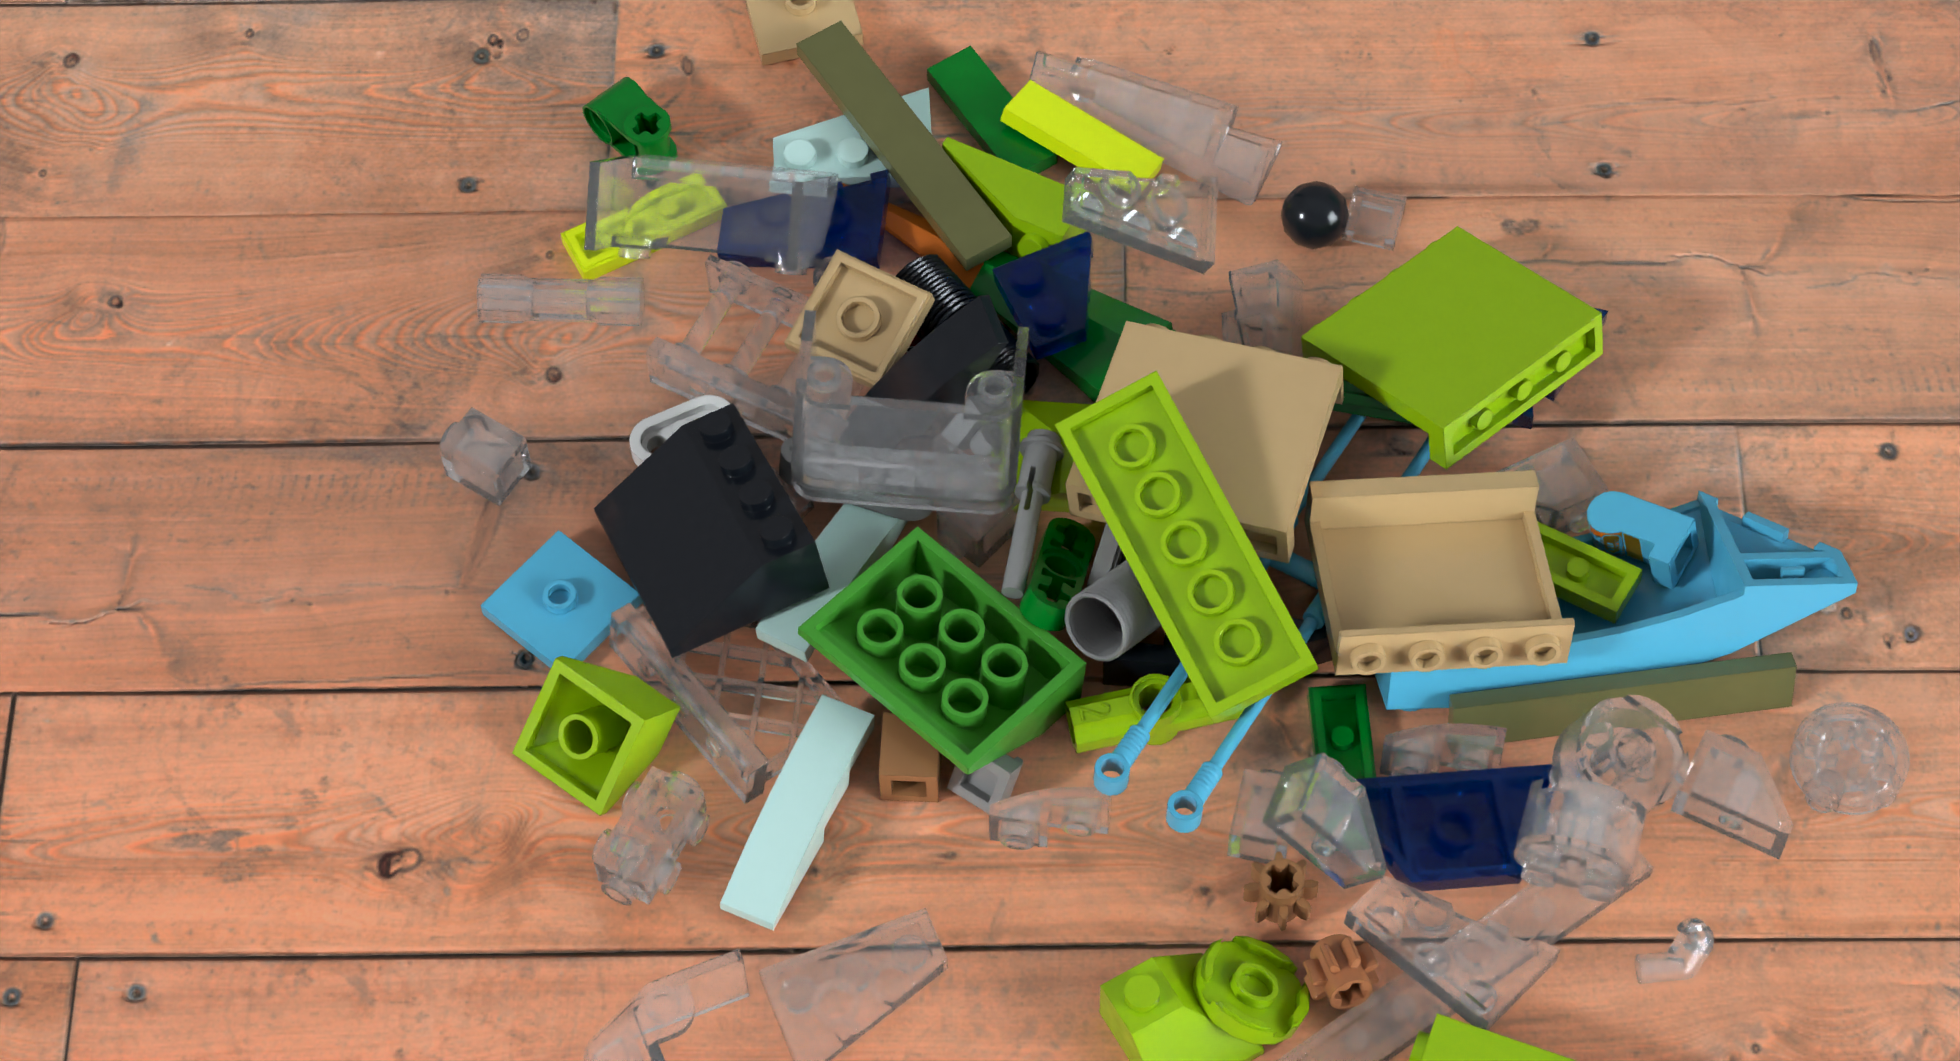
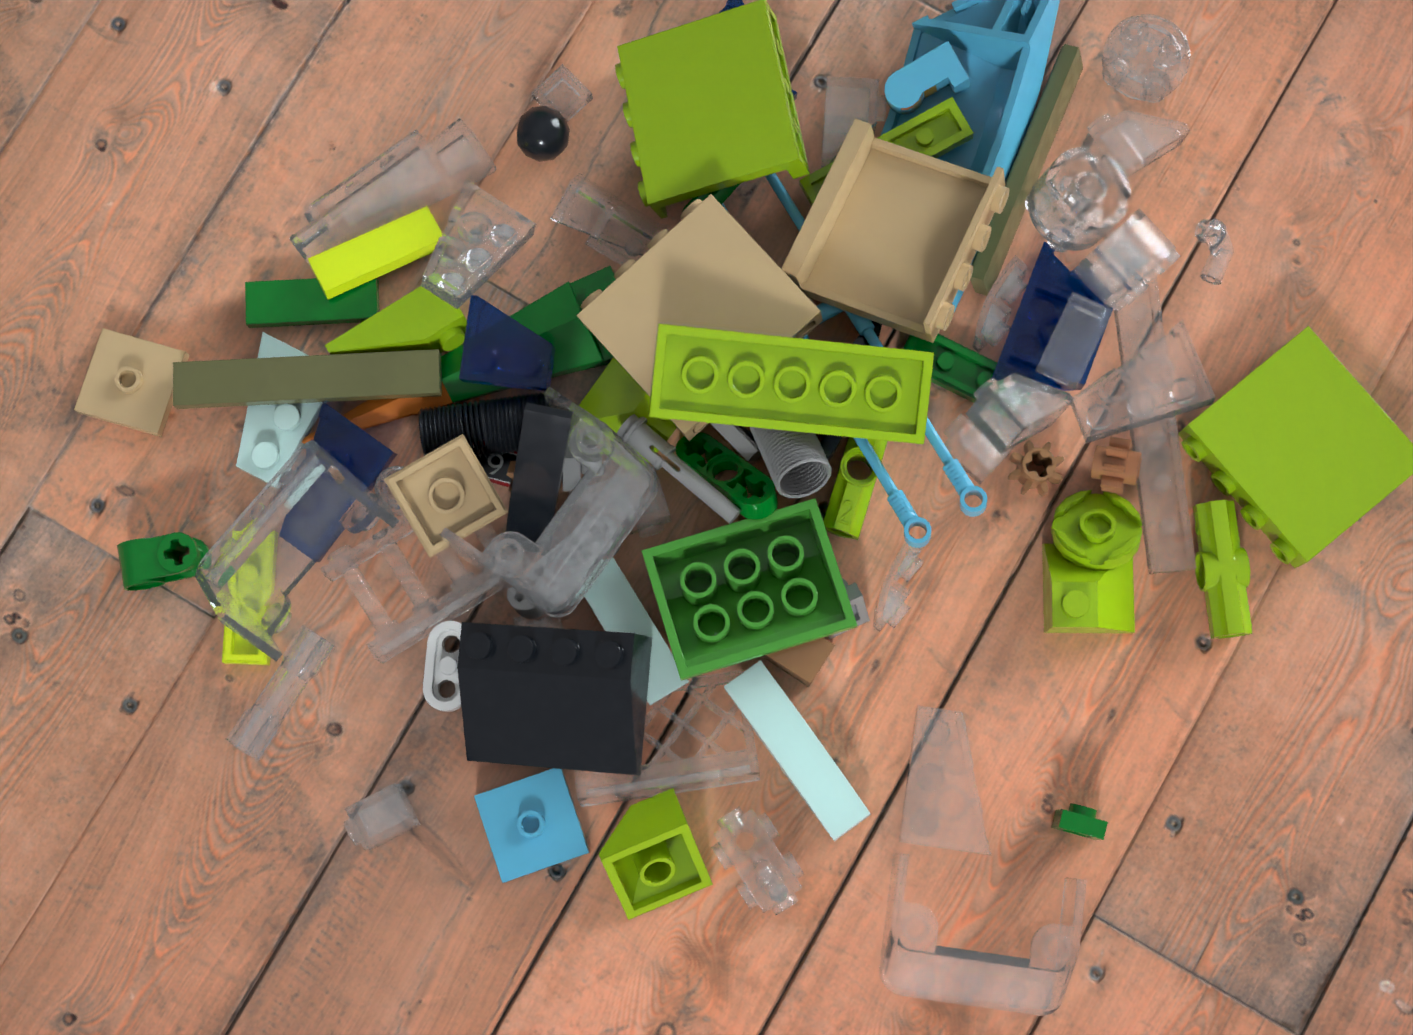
camera: 60 degrees left, 20 degrees up
(1451, 841) = (1074, 340): none -> clear tile

